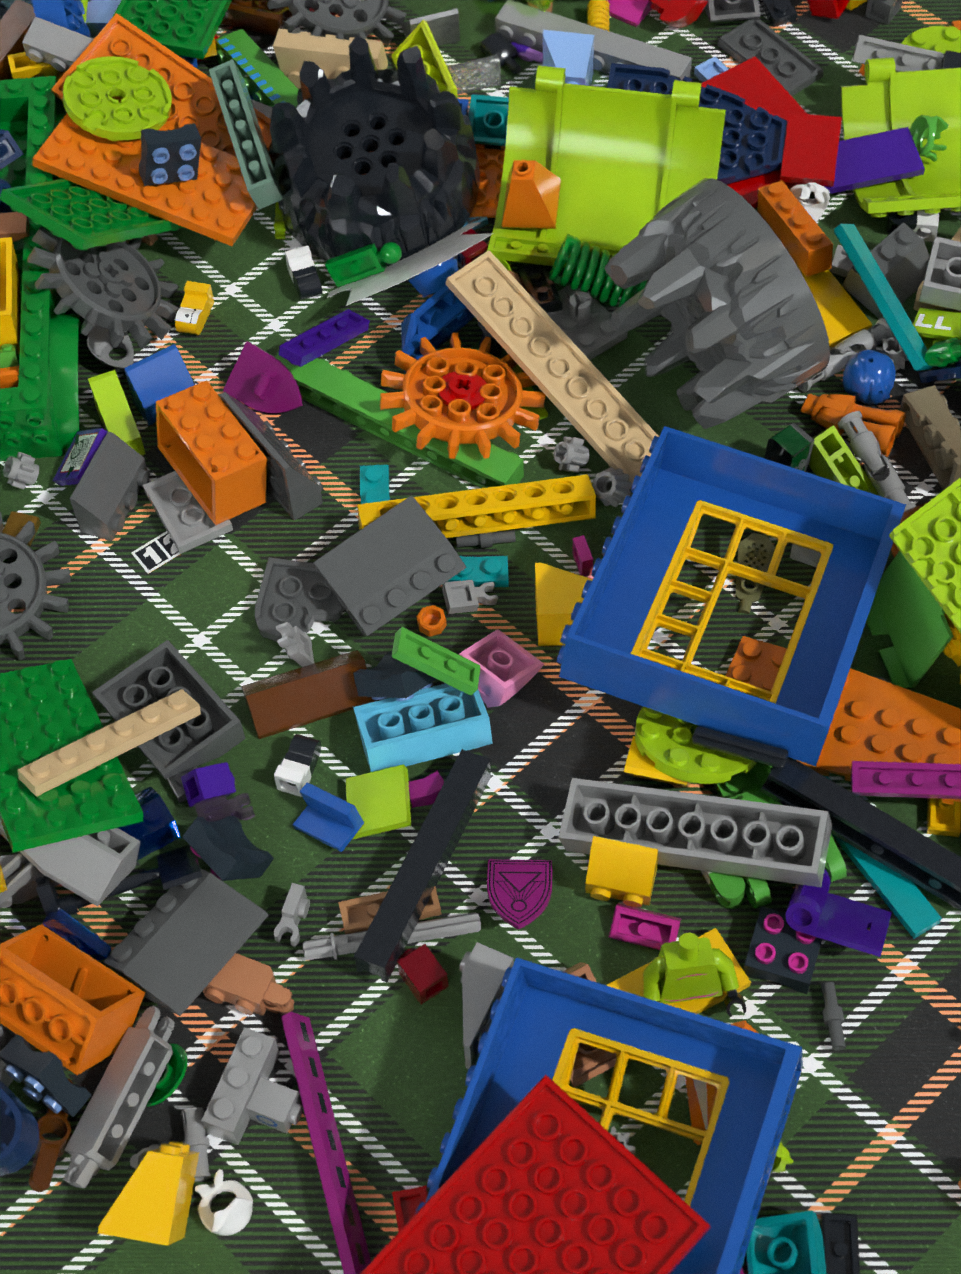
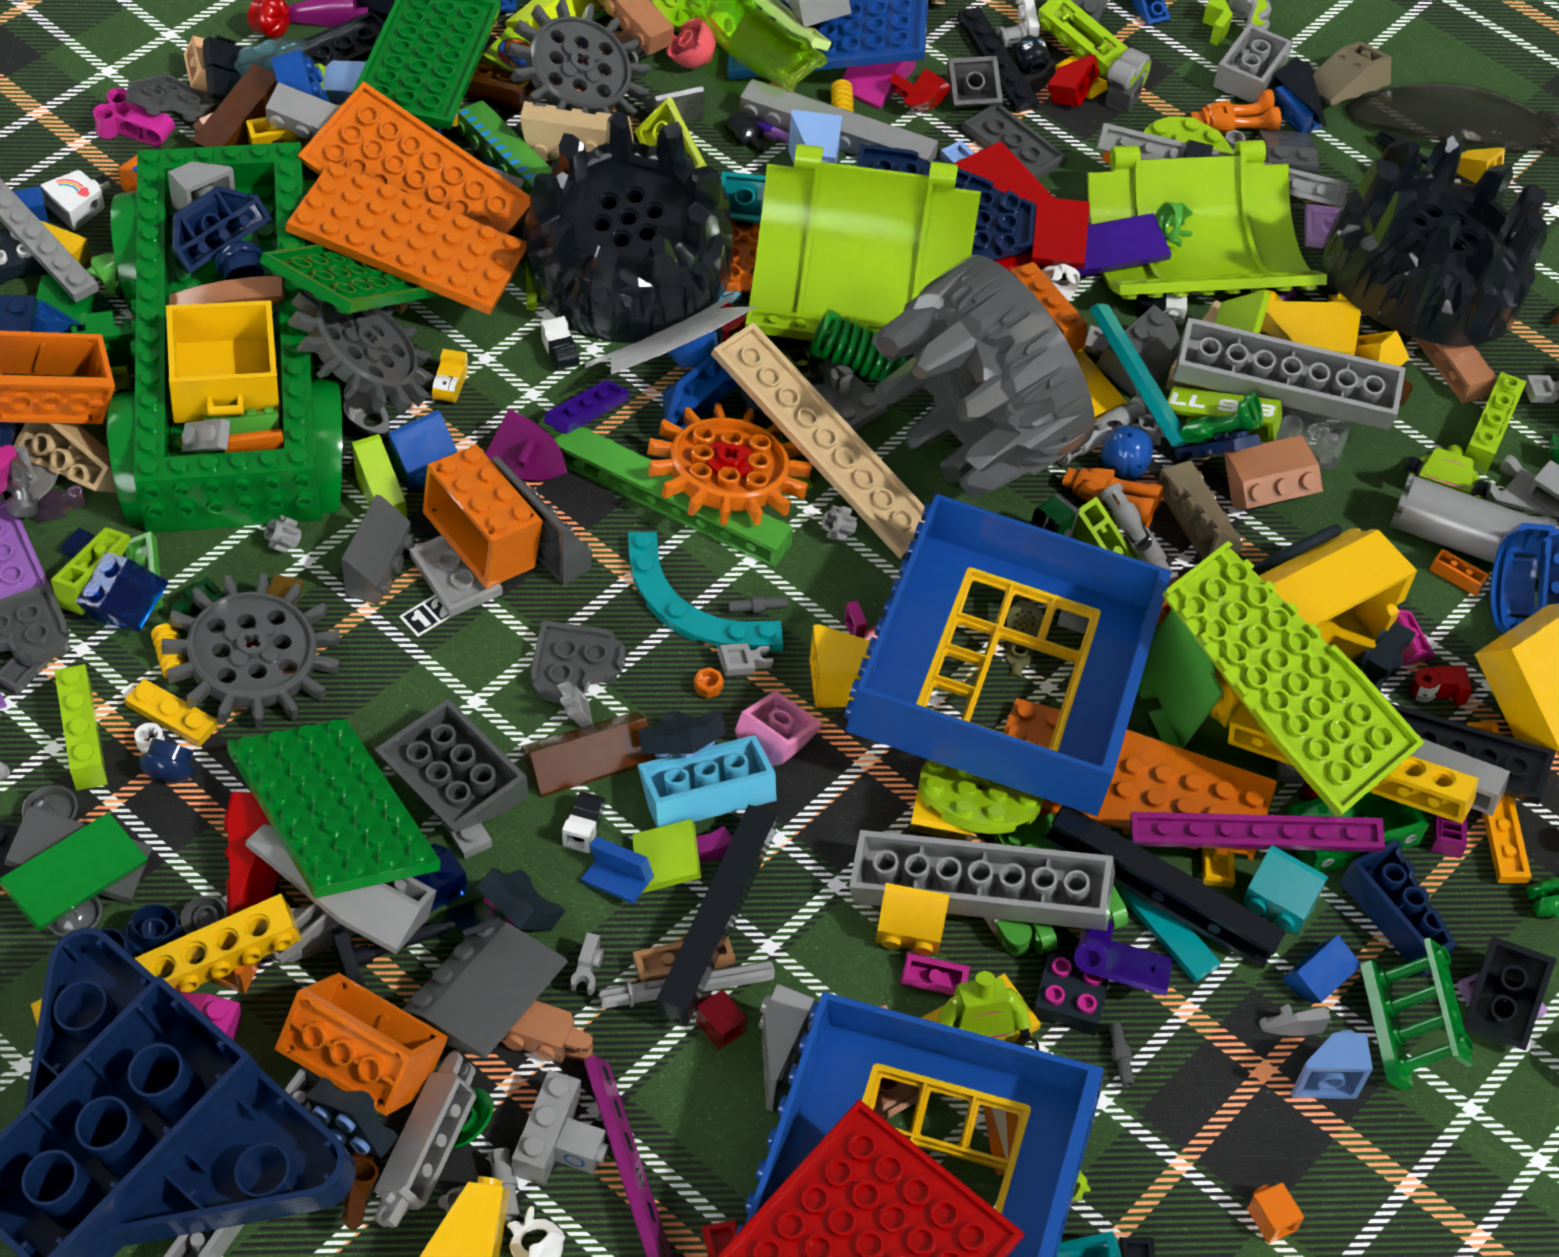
camera: 10 degrees left, 5 degrees down
(77, 934) = (371, 978): clear blue tile -> none
(79, 456) = (344, 520): tile -> none
(108, 742) = (400, 795): tan plate -> none
(142, 92) = (395, 165): lime plate -> none
(169, 155) = (428, 223): black brick -> none
(208, 783) = (496, 839): dark purple brick -> none
(220, 807) = (510, 861): clear purple plate -> none
(246, 134) = (501, 204): sand green brick -> none
(362, 263) = (621, 334): green plate -> none
(389, 565) = (667, 628): dark grey slope -> none
(436, 661) = (721, 717): bright green plate -> none
(476, 74) = (724, 151): clear bracket -> none
(500, 506) = (748, 577): yellow brick -> none
(519, 889) = (811, 938): magenta shield -> none
(531, 196) = (787, 272): orange slope -> none
(620, 486) = (887, 560): light grey piece -> none
(740, 747) = (1024, 798): black axle -> none

